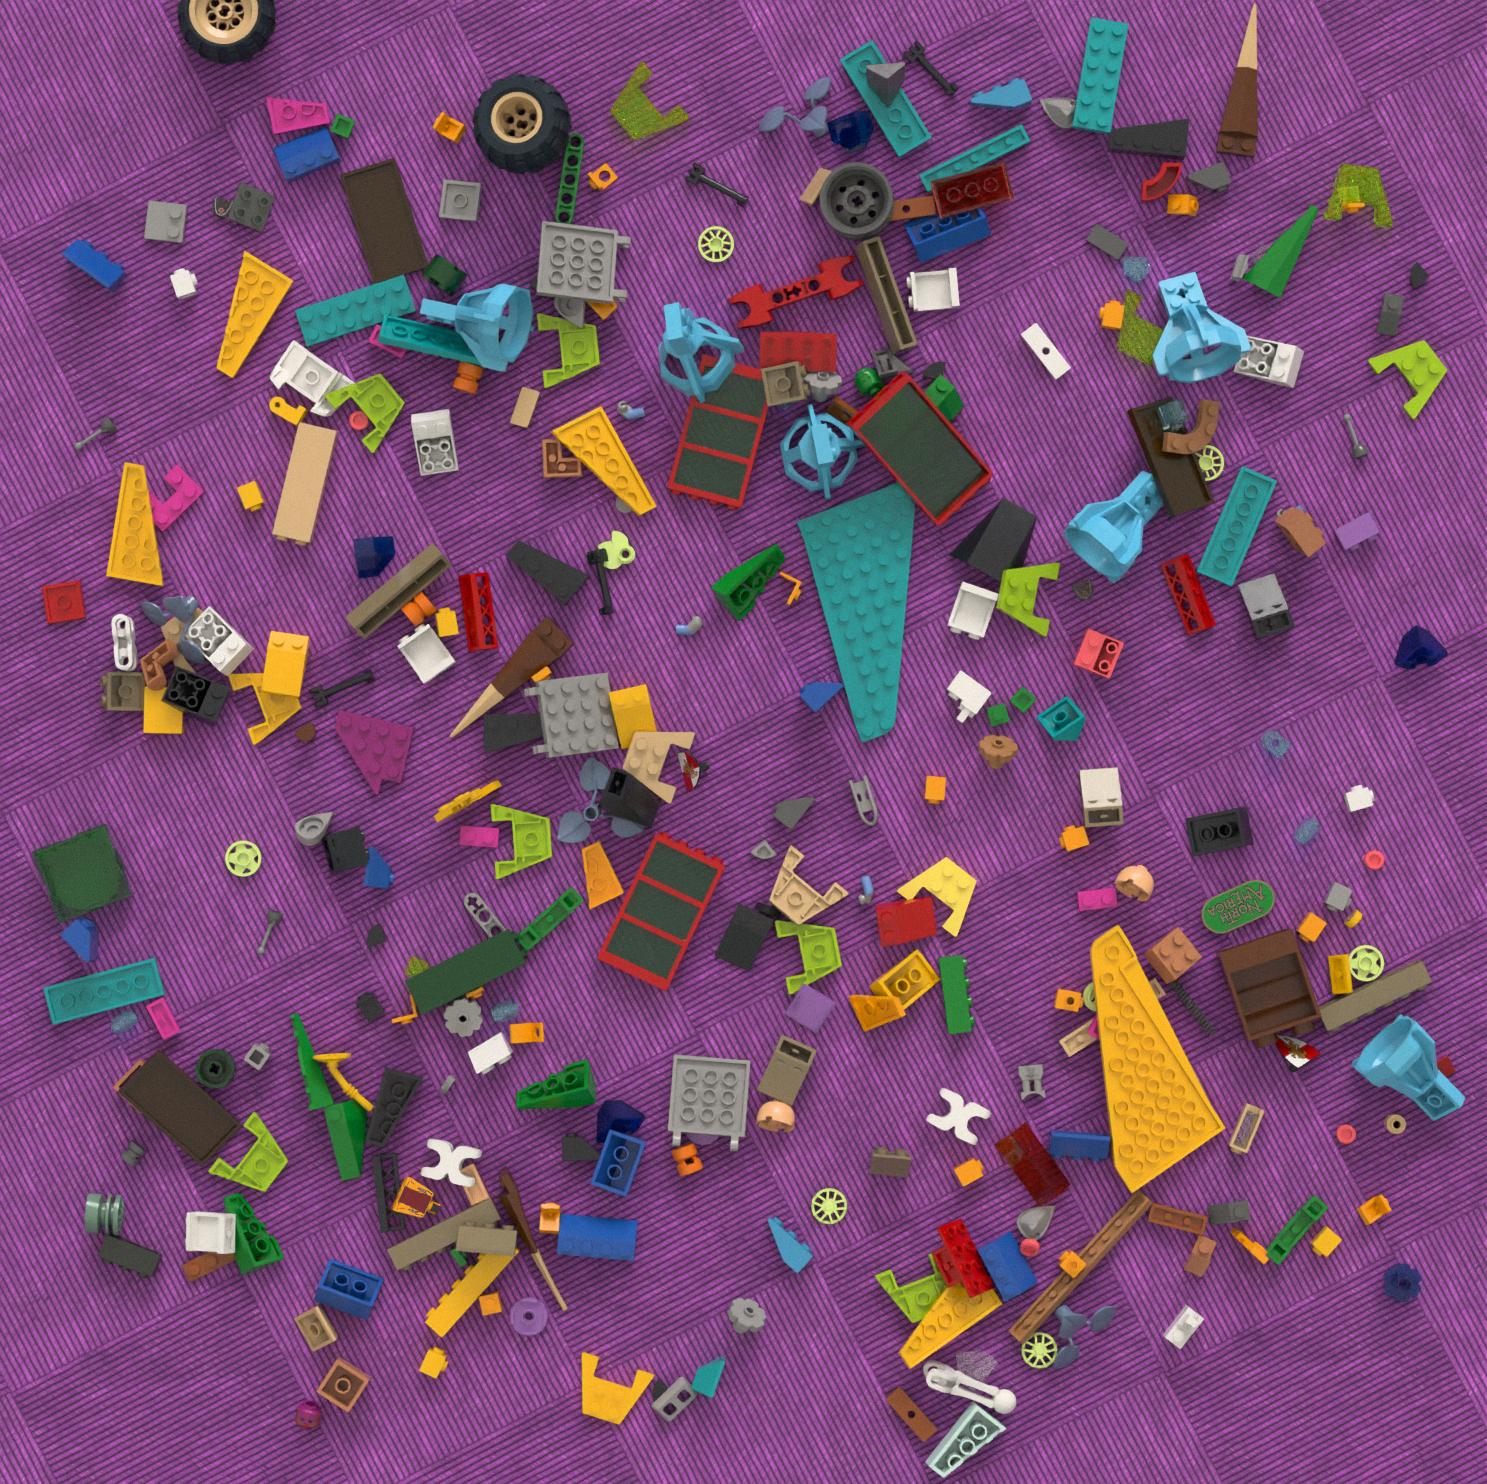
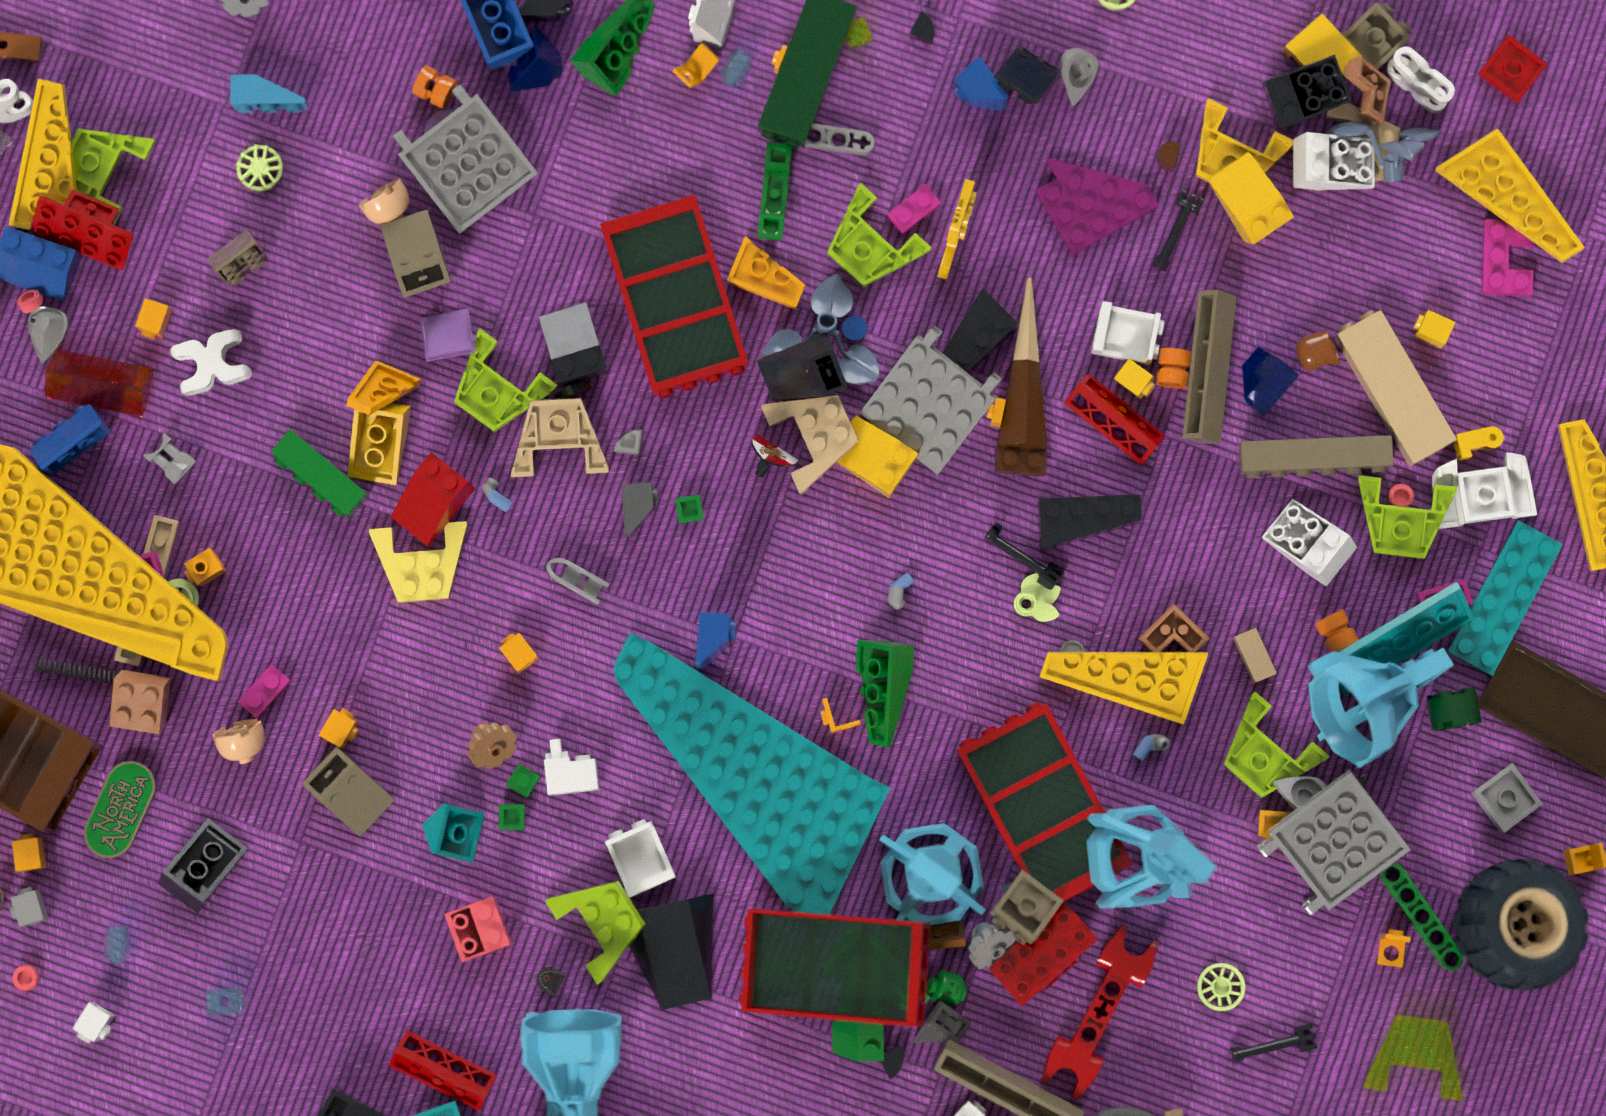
camera: 140 degrees right, 5 degrees down
(329, 544) = (1316, 351): none -> dark orange helmet
(385, 487) = (1315, 455): none -> dark tan brick
(463, 1025) = (770, 24): light grey plant -> none
(576, 799) = (854, 328): none -> blue tile
(764, 781) = (689, 509): none -> green plate

